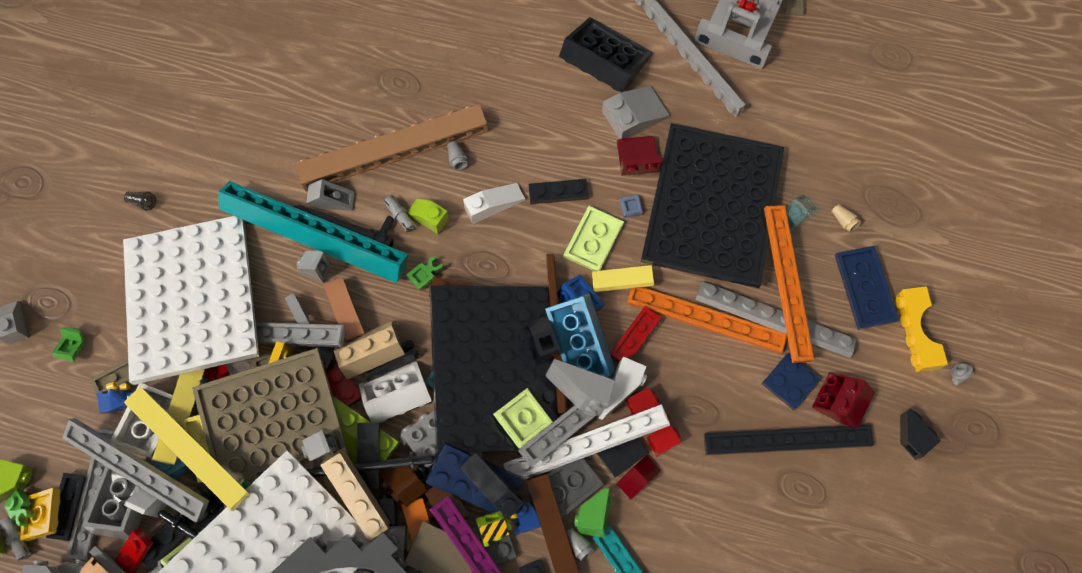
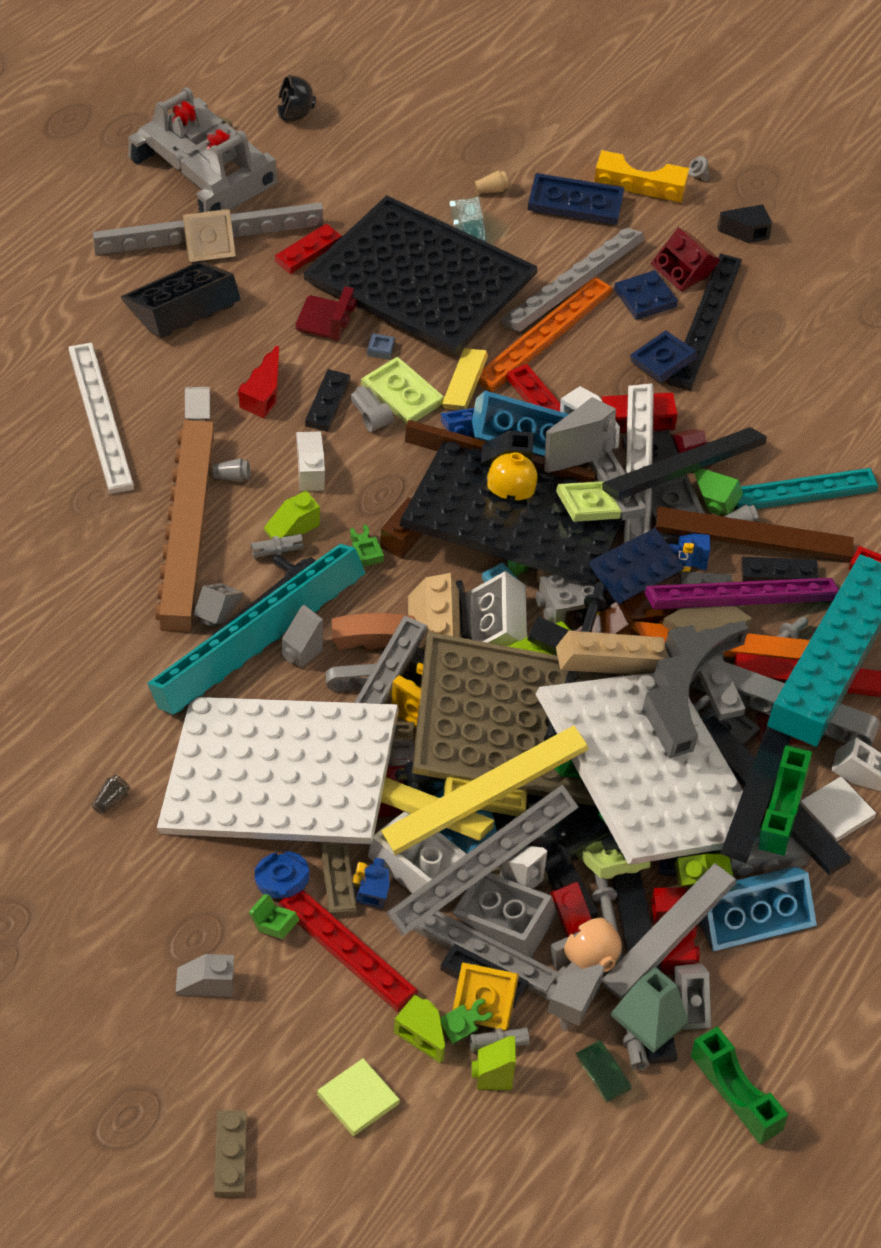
camera: 70 degrees left, 20 degrees down
(65, 404) = (350, 950): none -> red tile
(108, 335) = (282, 874): none -> blue tile
(319, 445) = (545, 659): light grey slope -> none
(469, 53) = (101, 418): none -> white tile
(492, 485) = (656, 541): black slope -> none
(493, 527) = (694, 568): brick -> none
(508, 106) = (197, 403): none -> white slope
(518, 351) = (512, 476): none -> yellow cylinder
(544, 143) = (260, 390): none -> red slope
(557, 228) = (373, 412): none -> light grey piece
(604, 479) = (683, 463): none -> black tile
(634, 111) = (269, 303): light grey slope -> none
(670, 44) = (209, 235): none -> tan plate
(703, 116) = (307, 248): none -> red plate
(722, 420) = (663, 356): none -> dark blue plate
(789, 284) = (544, 245): orange tile -> none
(849, 44) = (296, 98): none -> black cylinder

